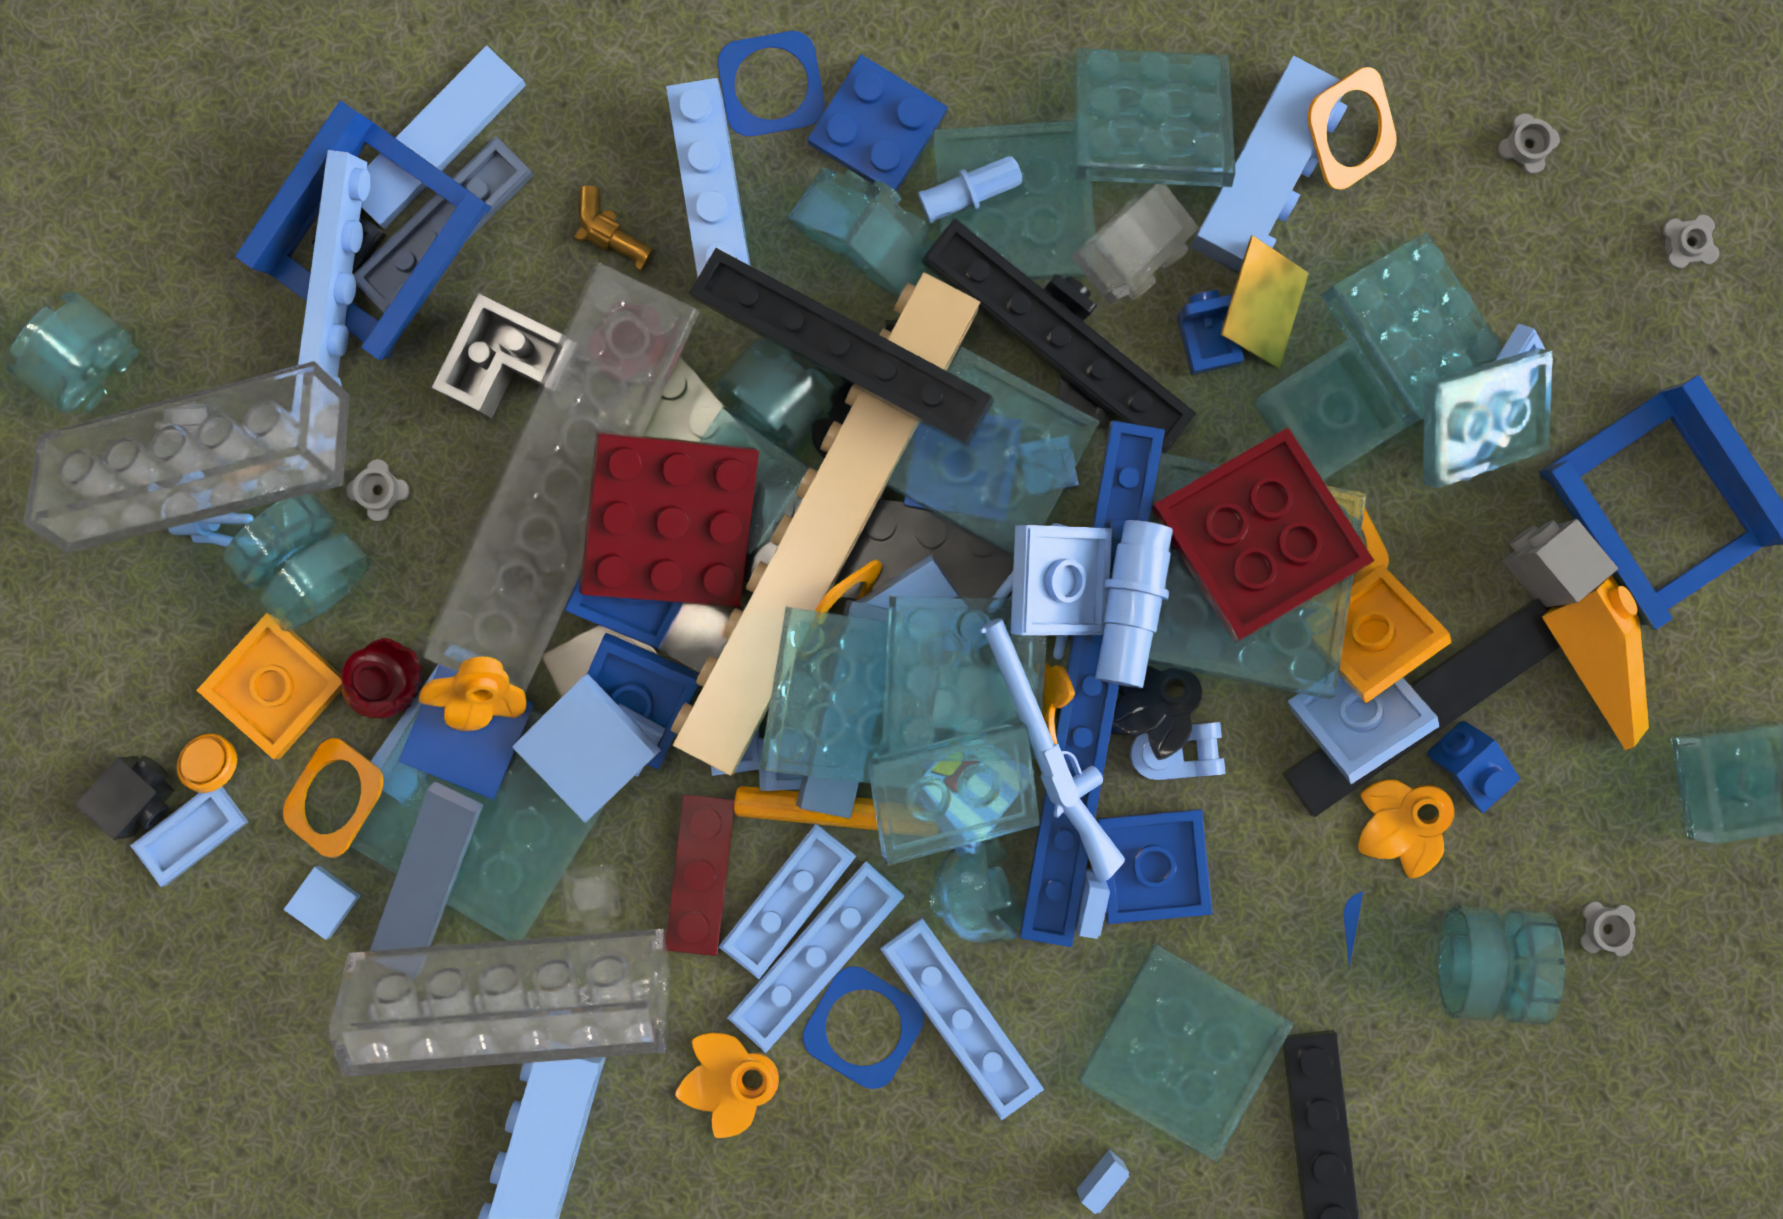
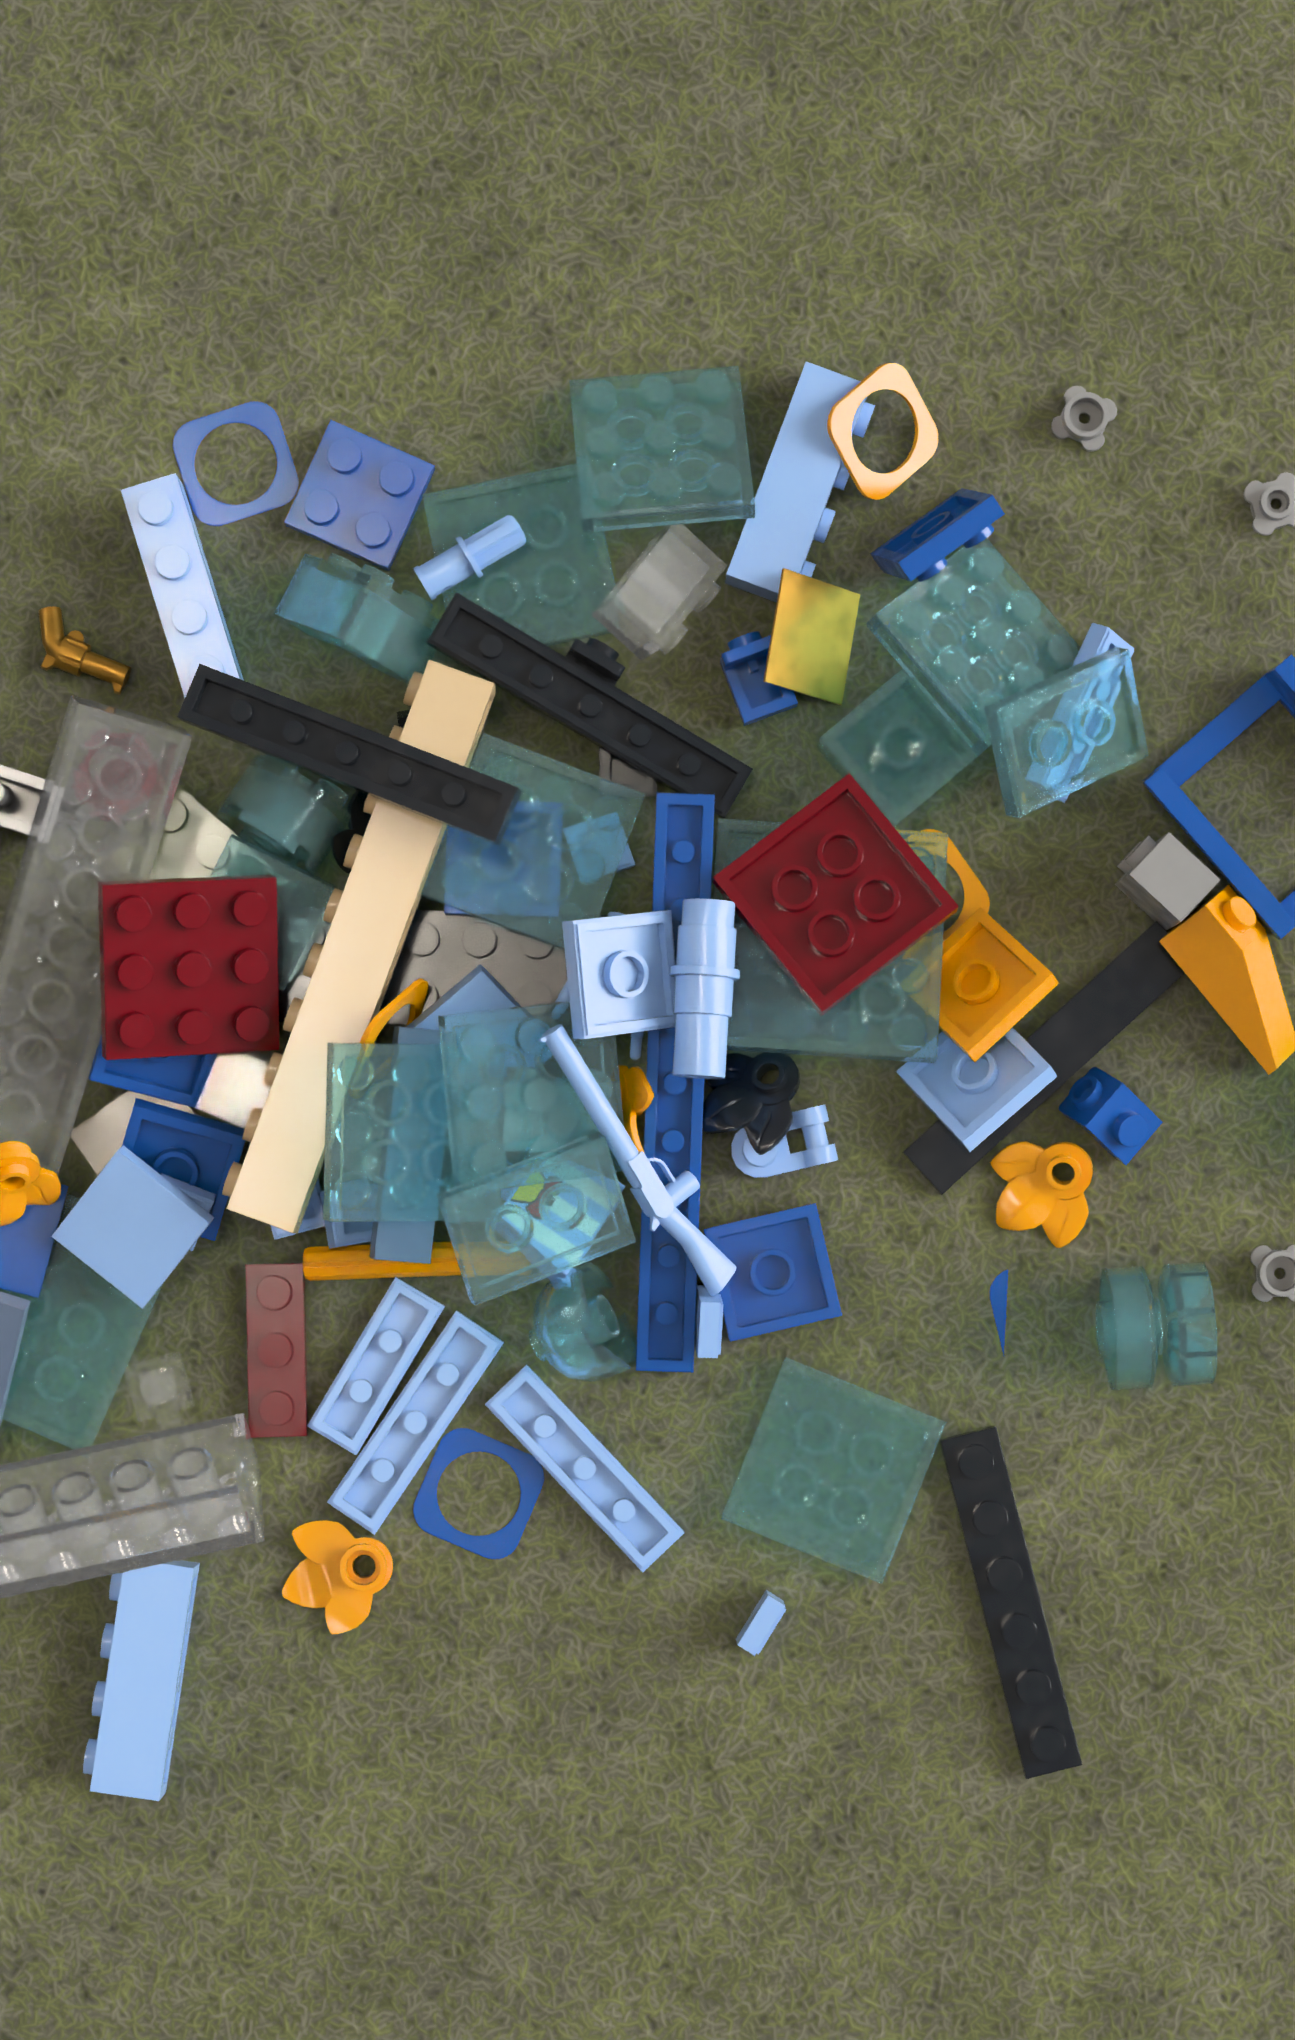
camera: 10 degrees left, 0 degrees up
(1382, 231) = (921, 547): none -> blue plate

